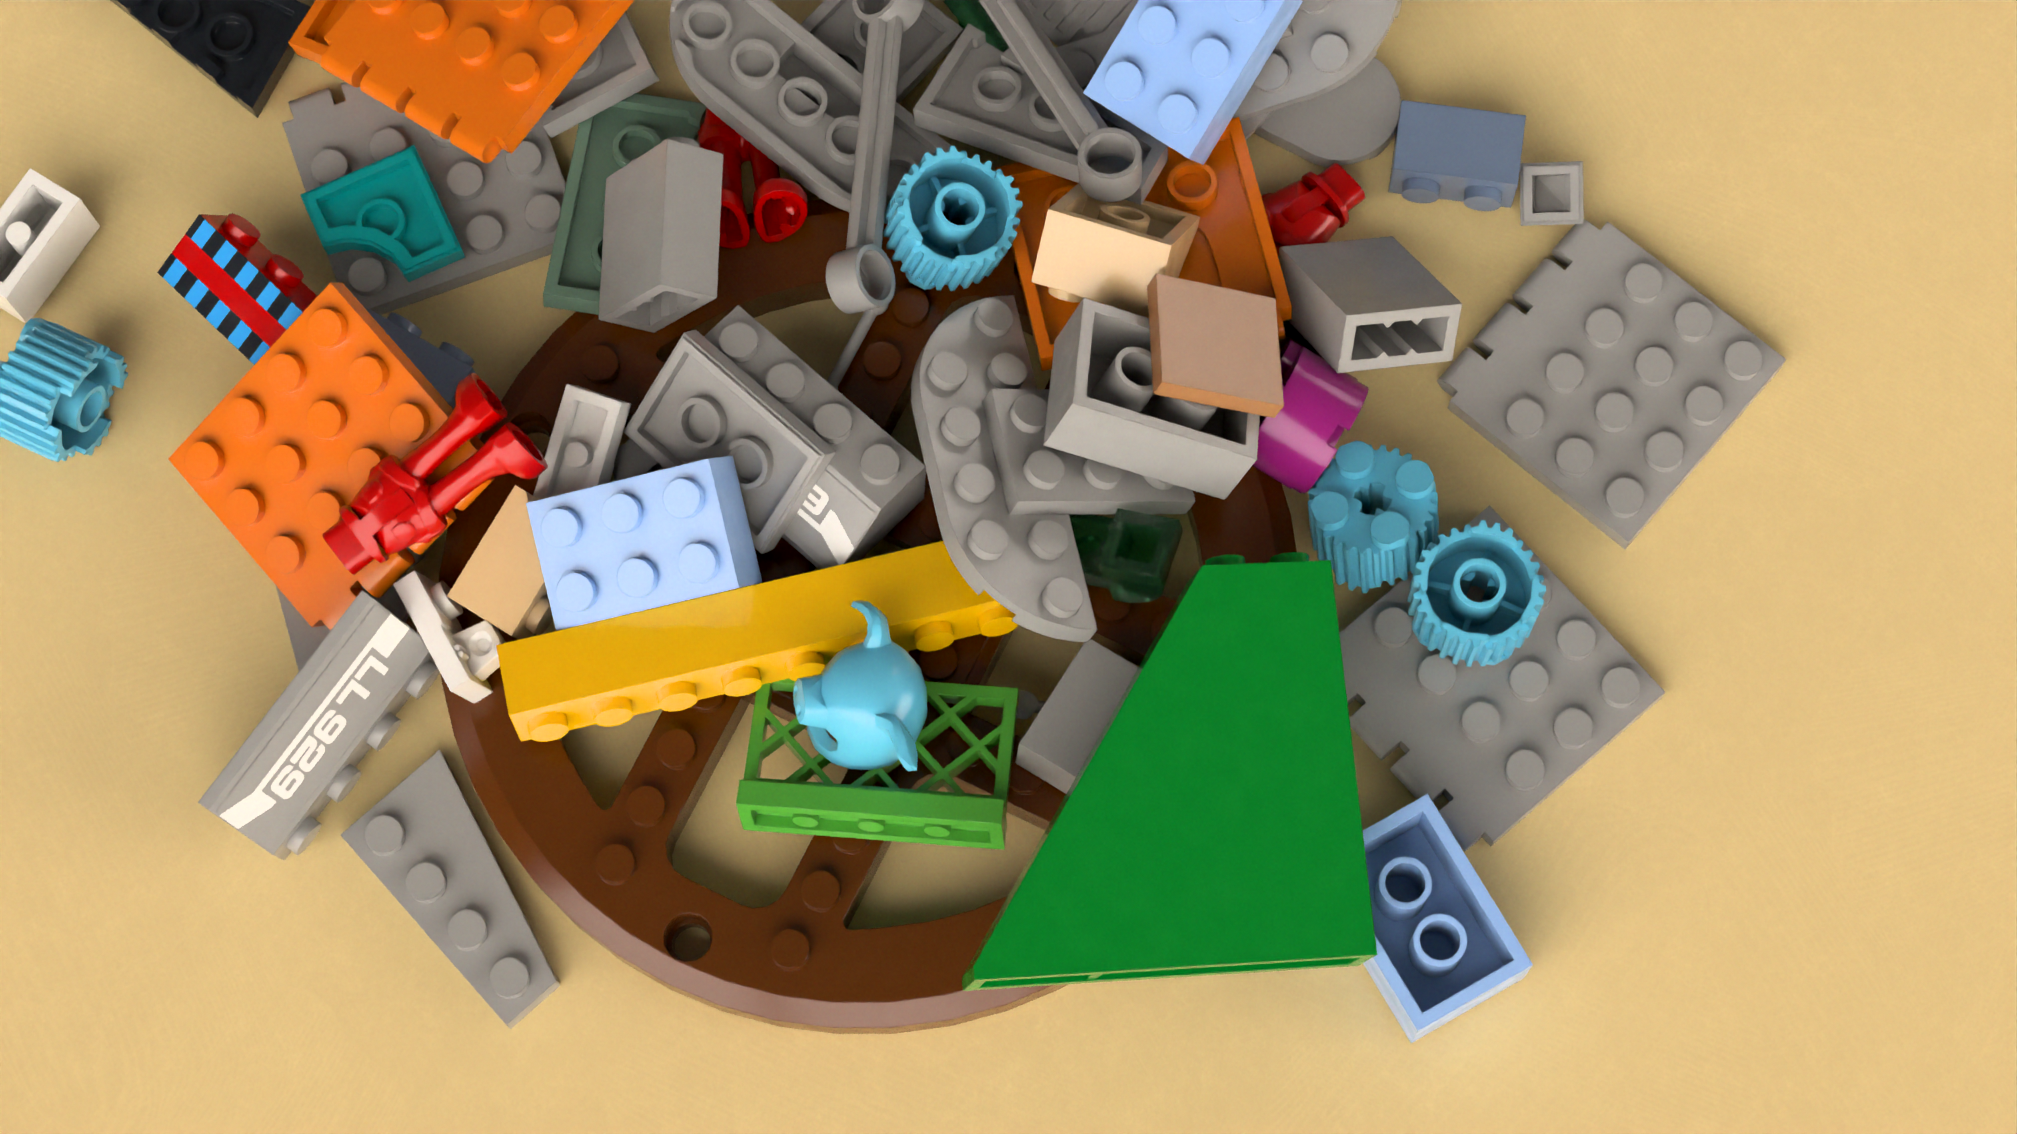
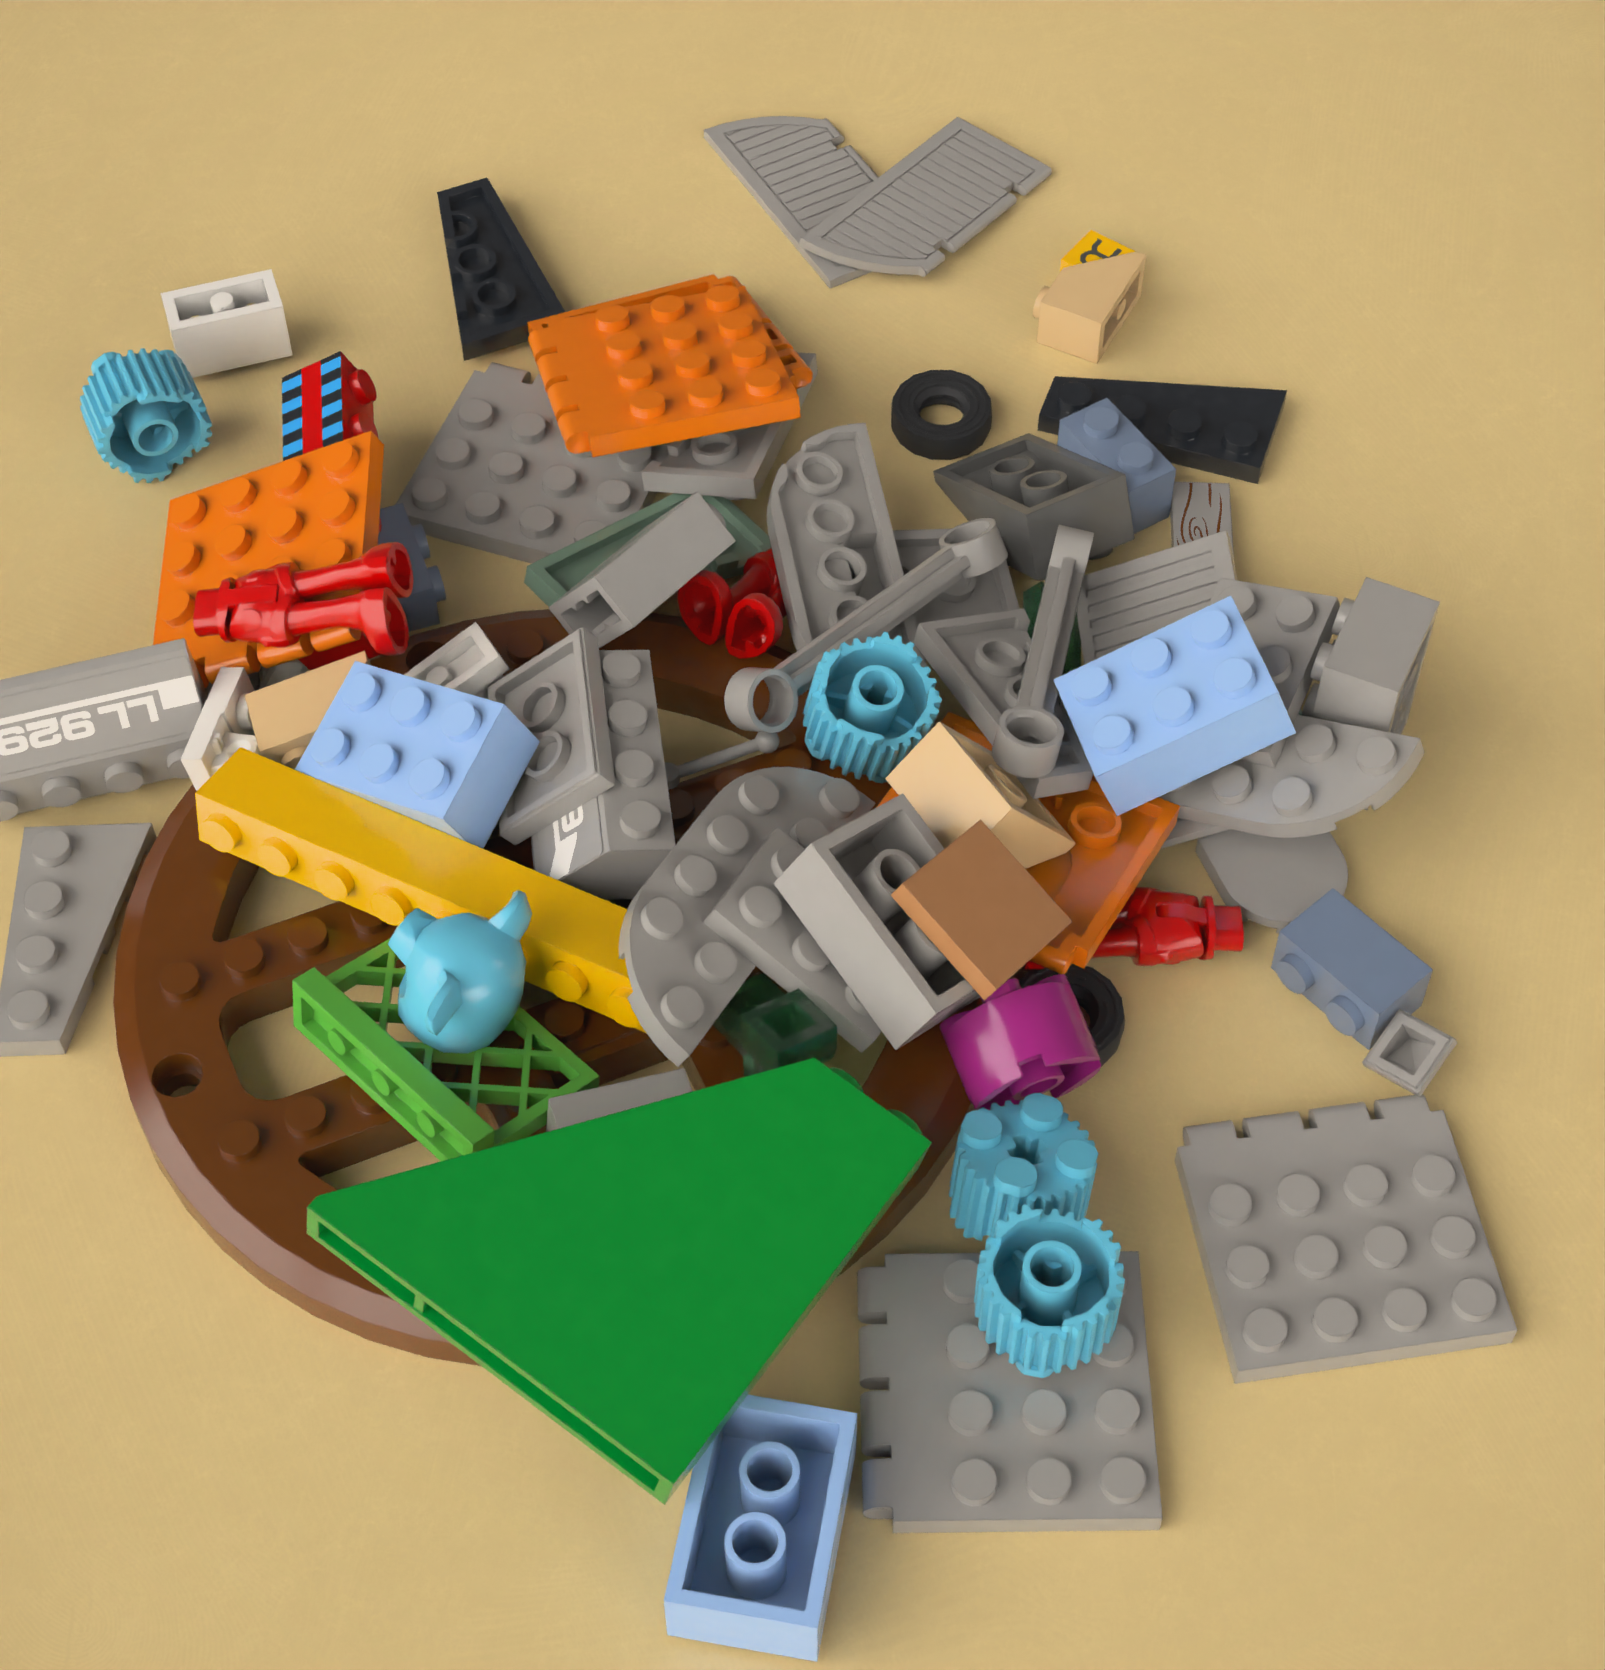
camera: 35 degrees right, 20 degrees down
(387, 212) = (481, 459): teal tile -> none
(1369, 304) = (1159, 1003): light grey brick -> none

